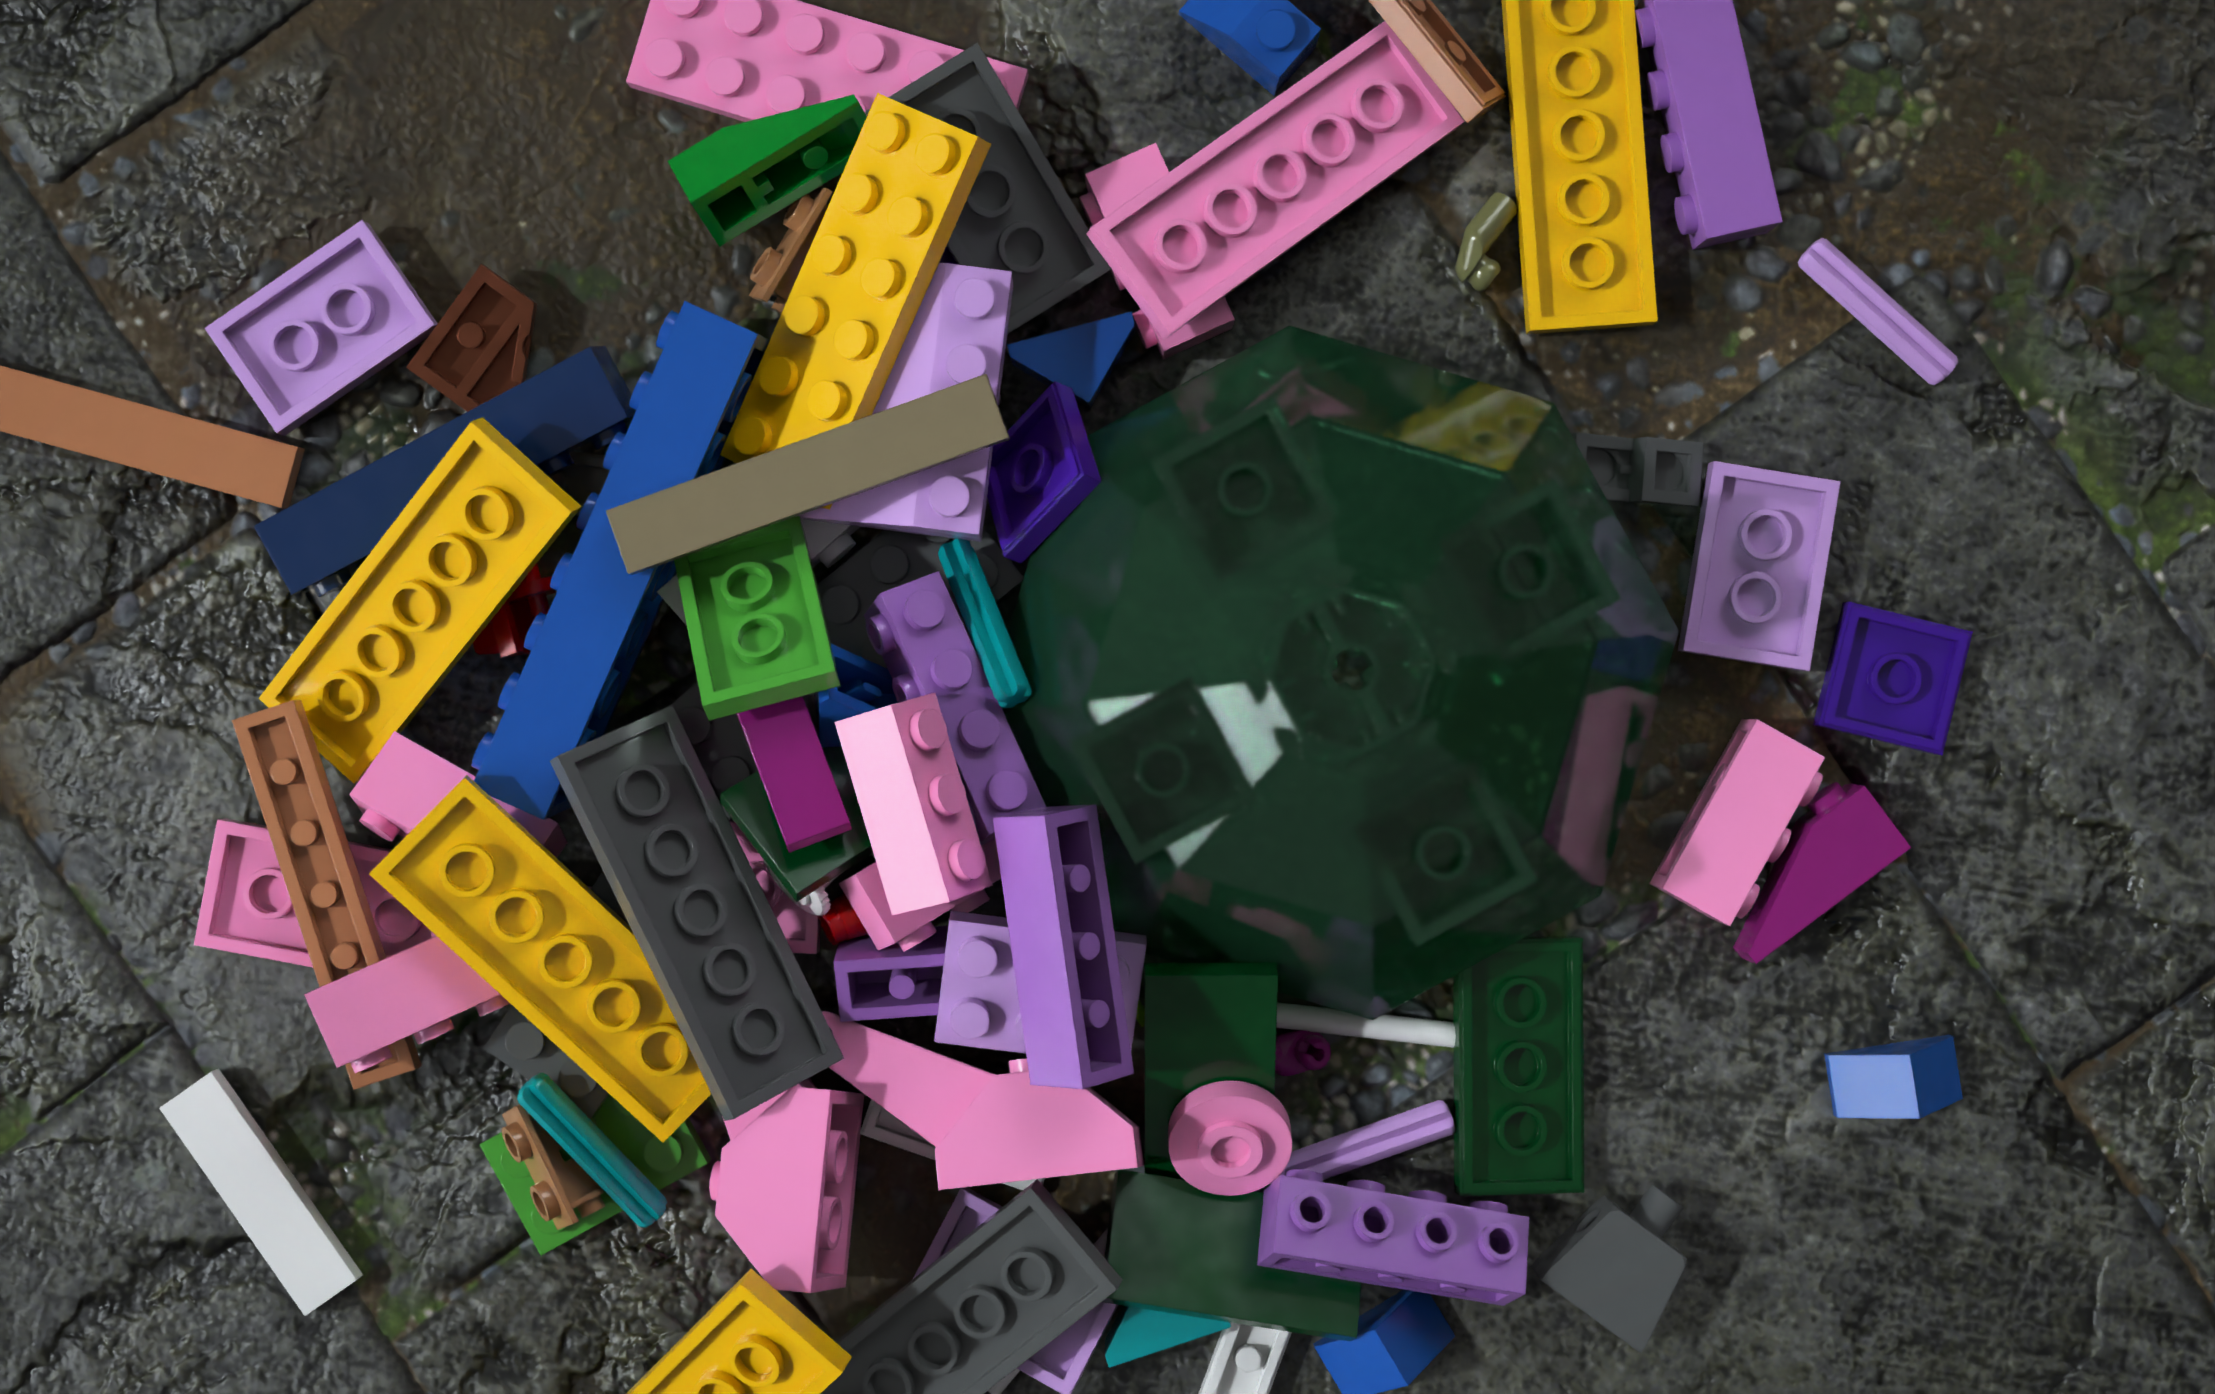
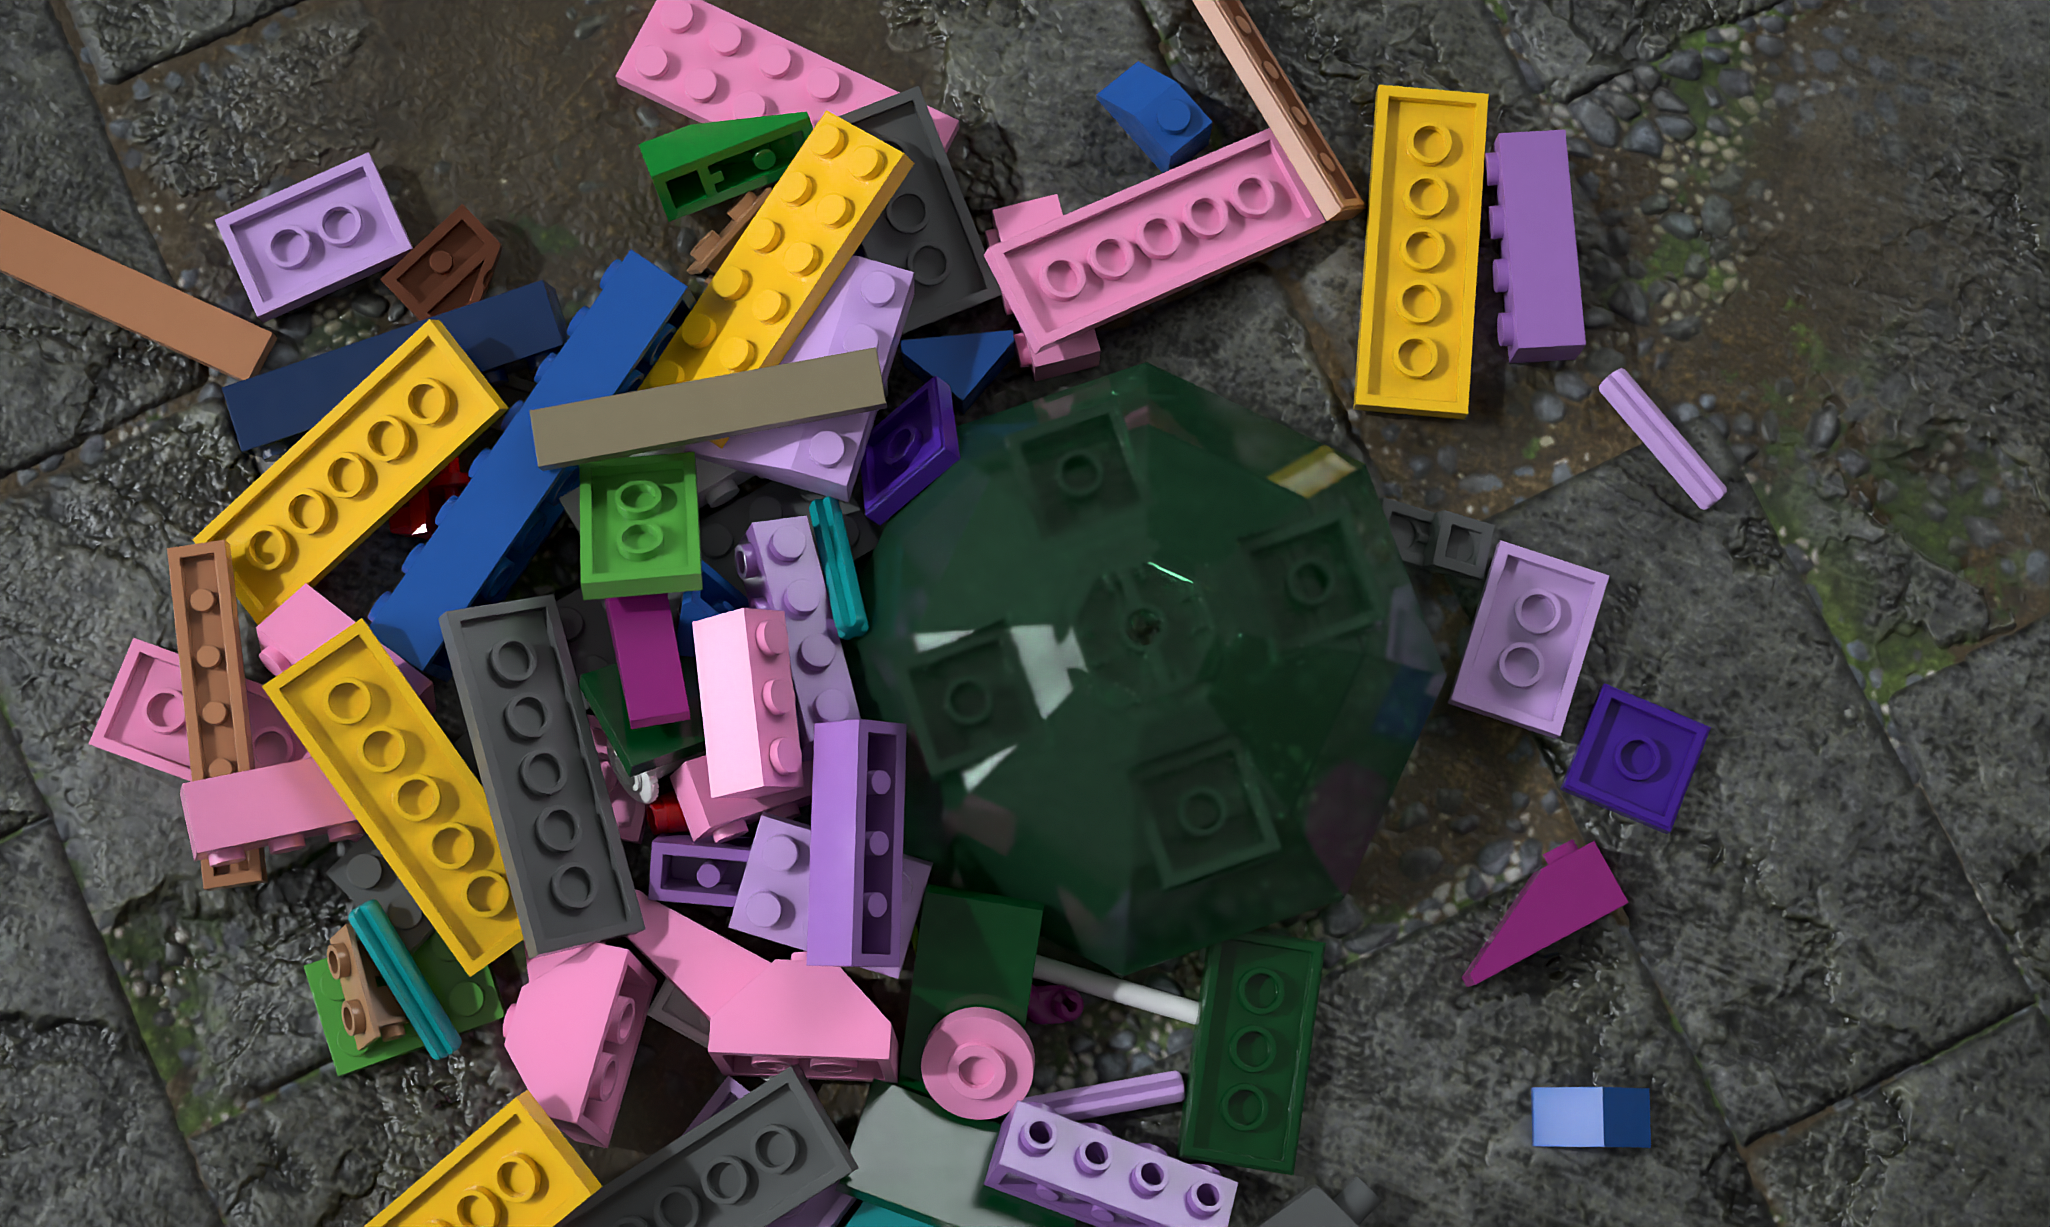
camera: 10 degrees right, 10 degrees down
(261, 1191) = (99, 979): white tile -> none
(1479, 237) = (1322, 322): olive arm -> none
(1739, 821) = (1480, 860): bright pink brick -> none

